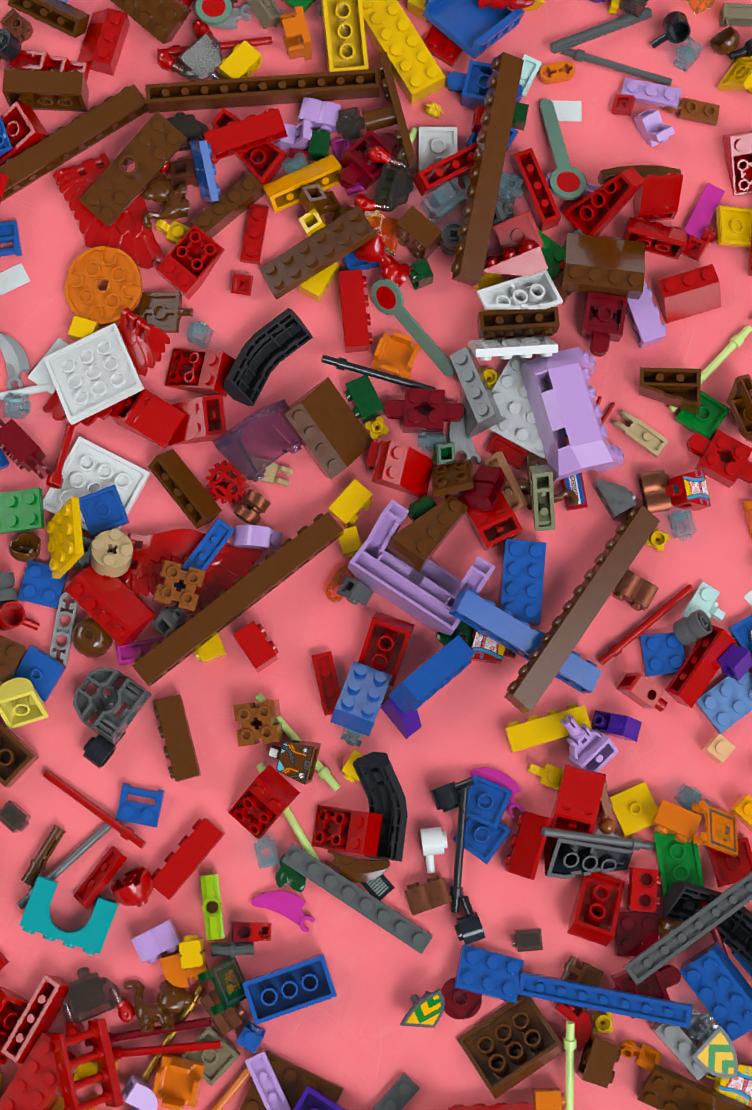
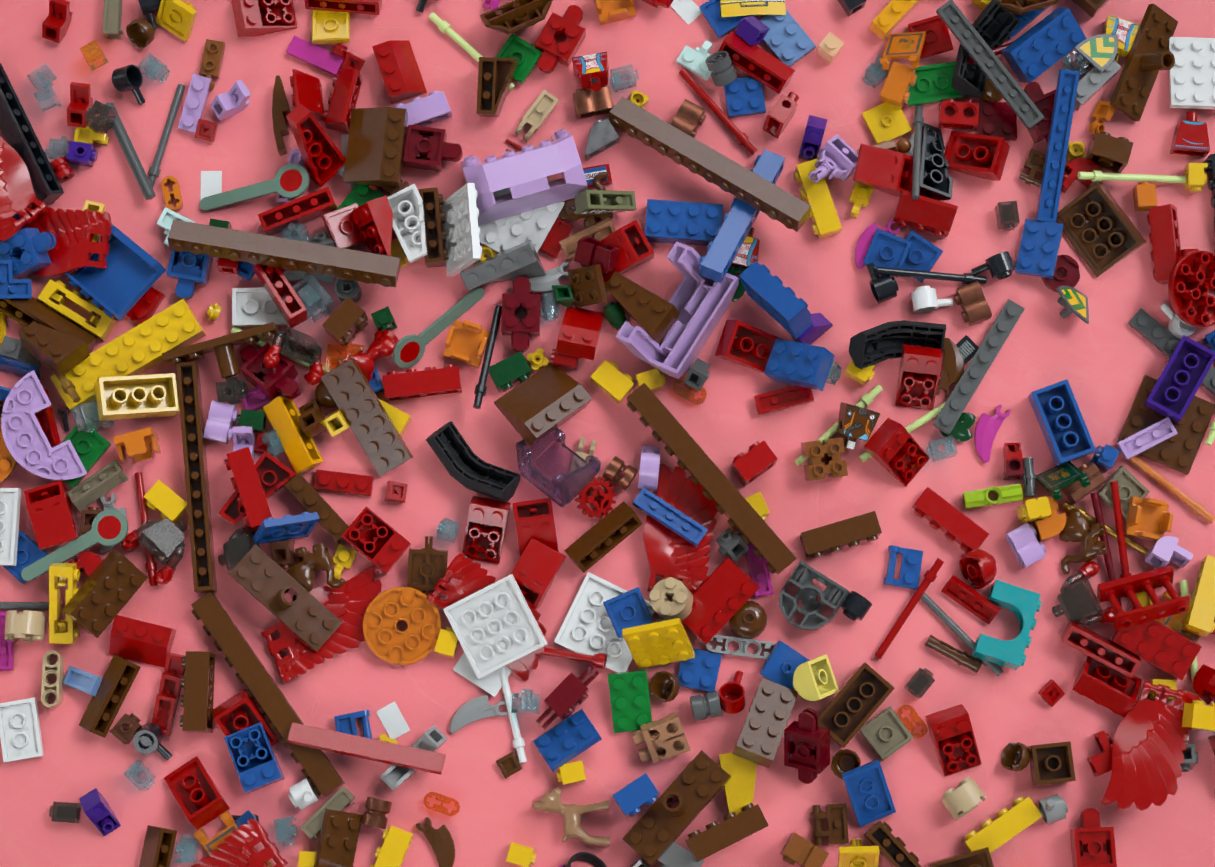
camera: 85 degrees left, 0 degrees up
(172, 574) = (693, 540): dark orange brick -> none

